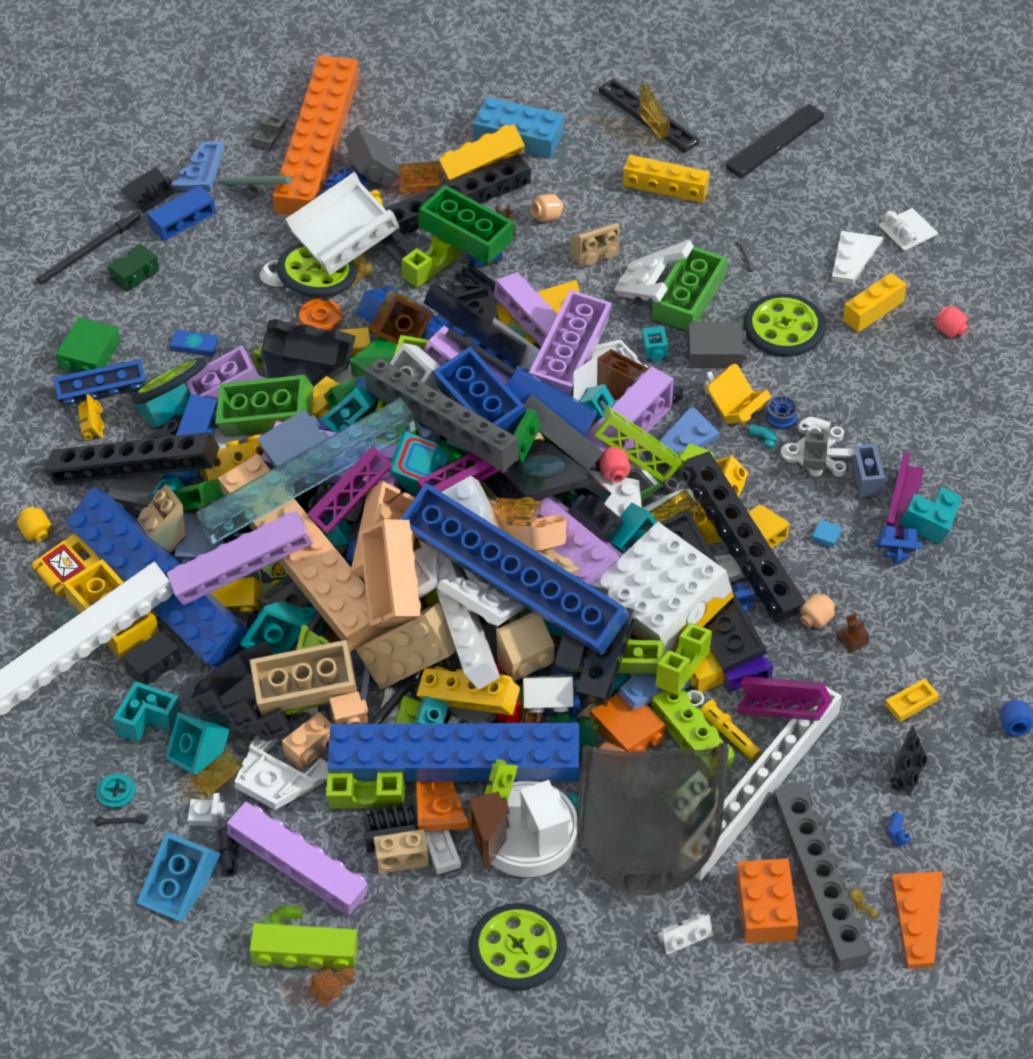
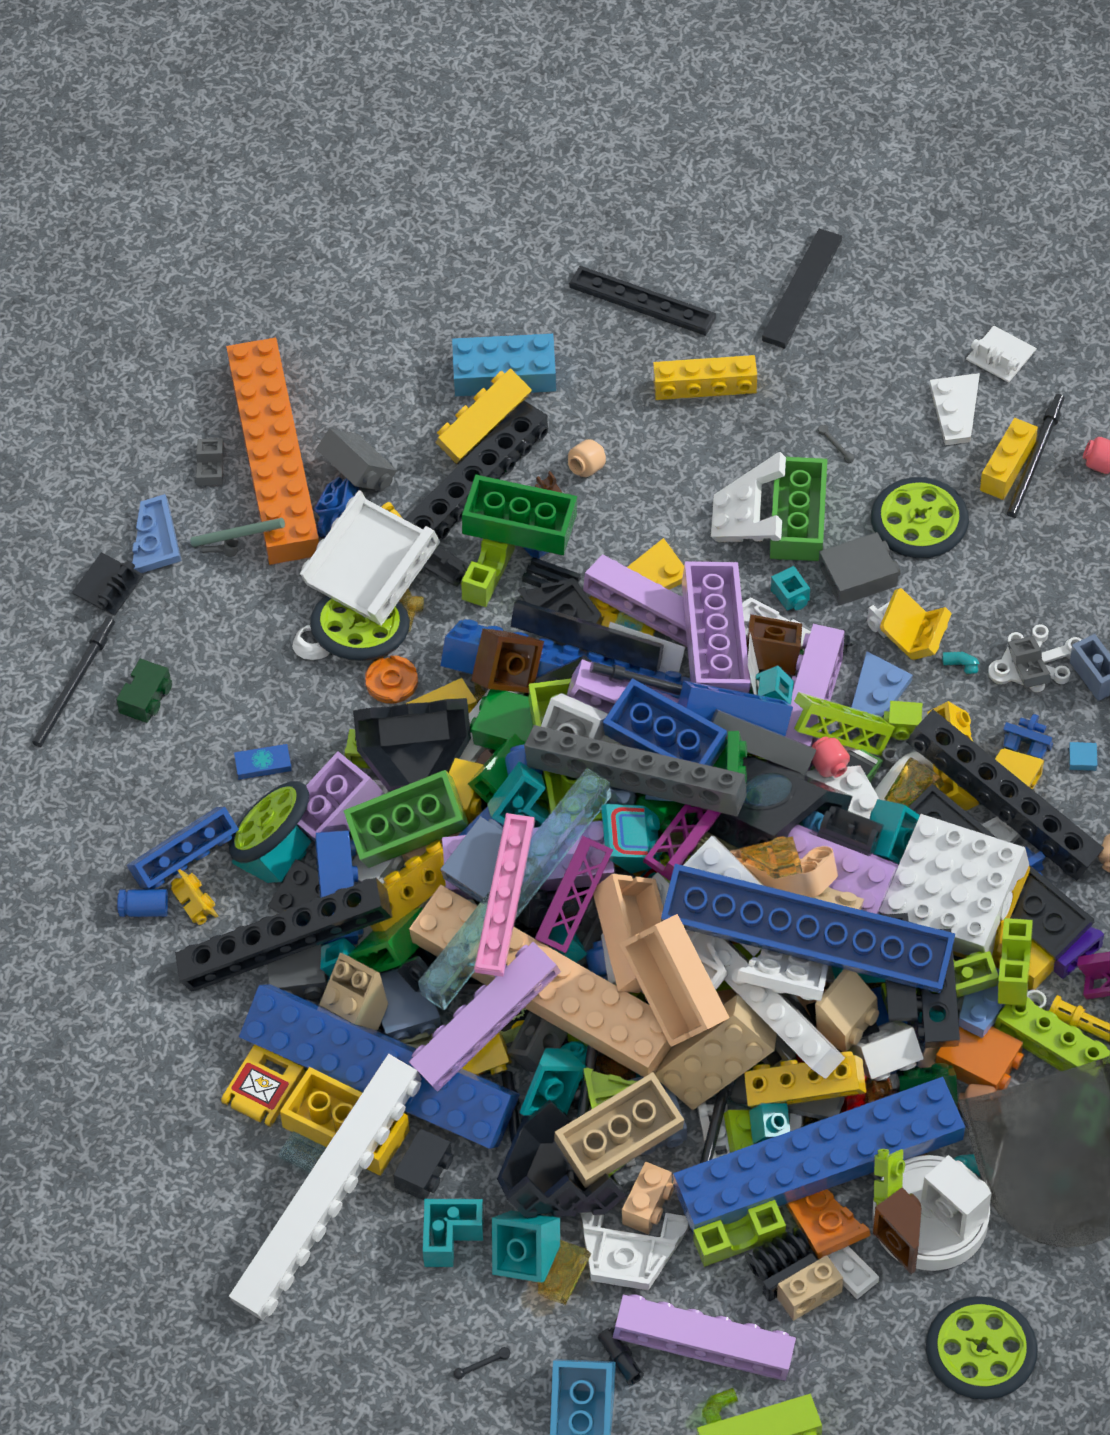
camera: 20 degrees left, 5 degrees up
(34, 524) = (199, 1050): yellow head -> none
(51, 410) = (143, 903): none -> blue piece
(87, 346) = (143, 809): green brick -> none
(109, 784) = (468, 1322): teal gear -> none
(181, 213) = (163, 602): blue brick -> none
(206, 811) = (572, 1319): white bracket -> none
(289, 468) = (504, 895): none -> bright pink tile
(348, 709) = (679, 1150): light nougat brick -> none
(419, 176) = (421, 465): clear orange bracket -> none
(595, 244) = (666, 487): tan slope -> none
(652, 112) = (653, 298): clear yellow wing -> none
(782, 412) = (977, 623): blue wheel -> none
(794, 511) = (1039, 742): none -> blue hips
(805, 424) = (1003, 631): white arm -> none
(924, 285) = (1050, 419): none -> black bar

